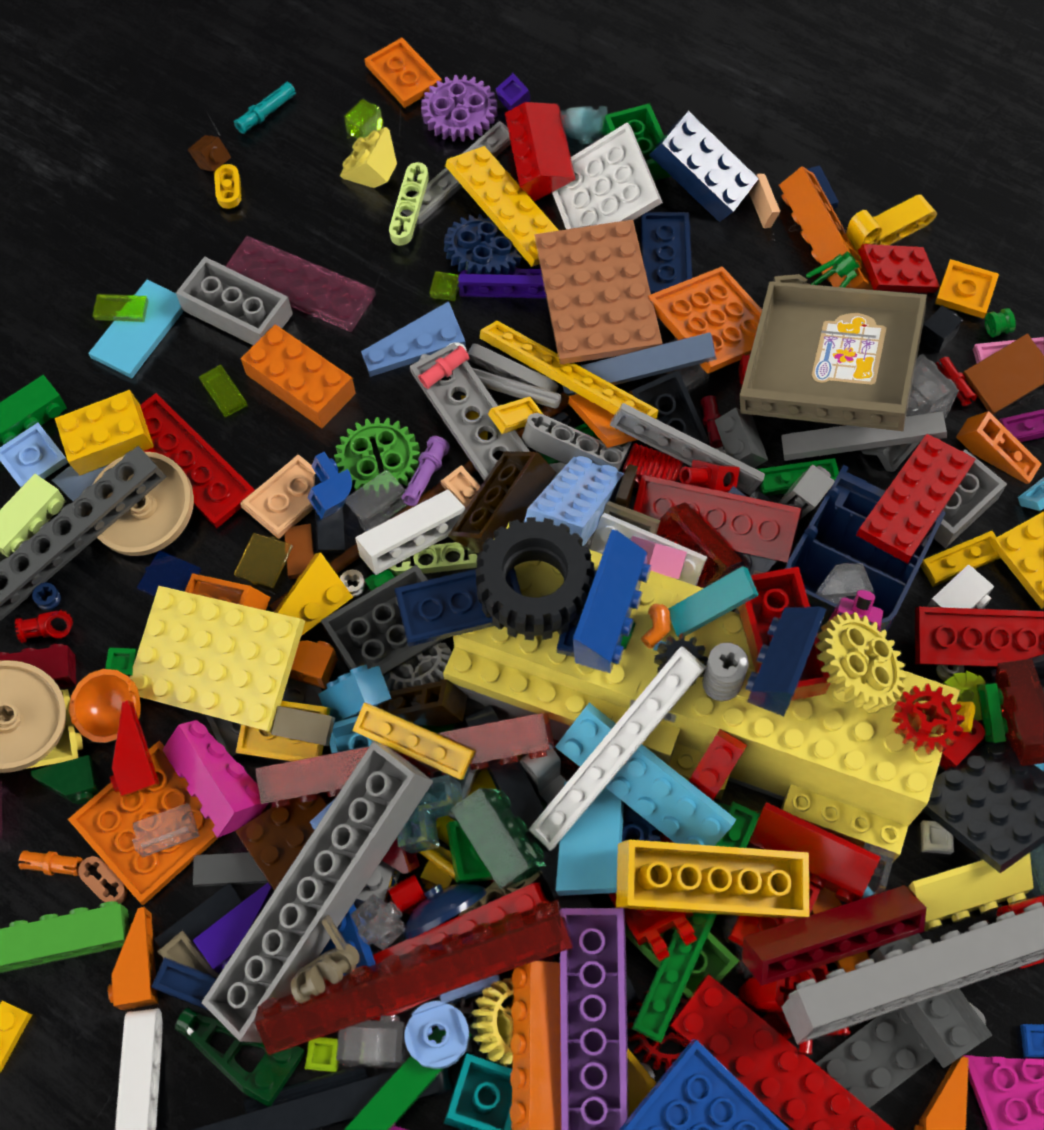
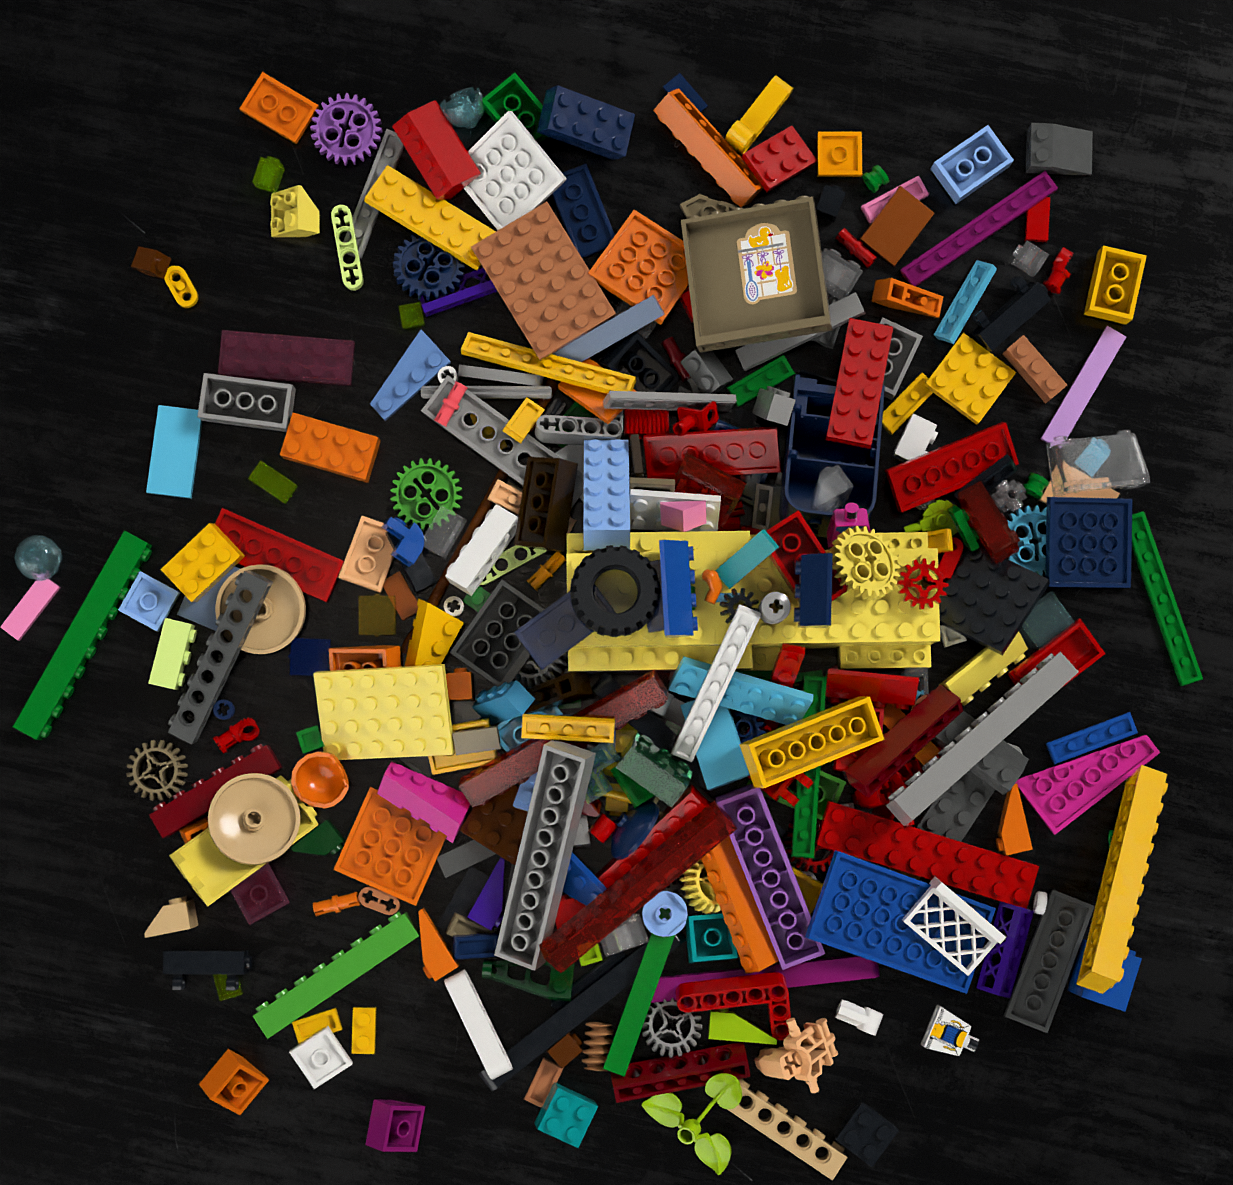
camera: 30 degrees left, 20 degrees up
(120, 308) = (152, 441): clear neon green tile -> none
(132, 760) = (364, 814): red slope -> none
(164, 830) = (408, 849): clear panel -> none
(258, 112) = (174, 190): teal pin -> none
(326, 966) = (578, 900): dark tan piece -> none
(378, 922) = (594, 857): clear brick -> none
(428, 463) = (470, 485): medium lavender pin -> none
(512, 92) = (389, 100): dark purple brick -> none
(764, 201) = (646, 130): light nougat tile -> none
(842, 264) = (736, 184): green plant -> none

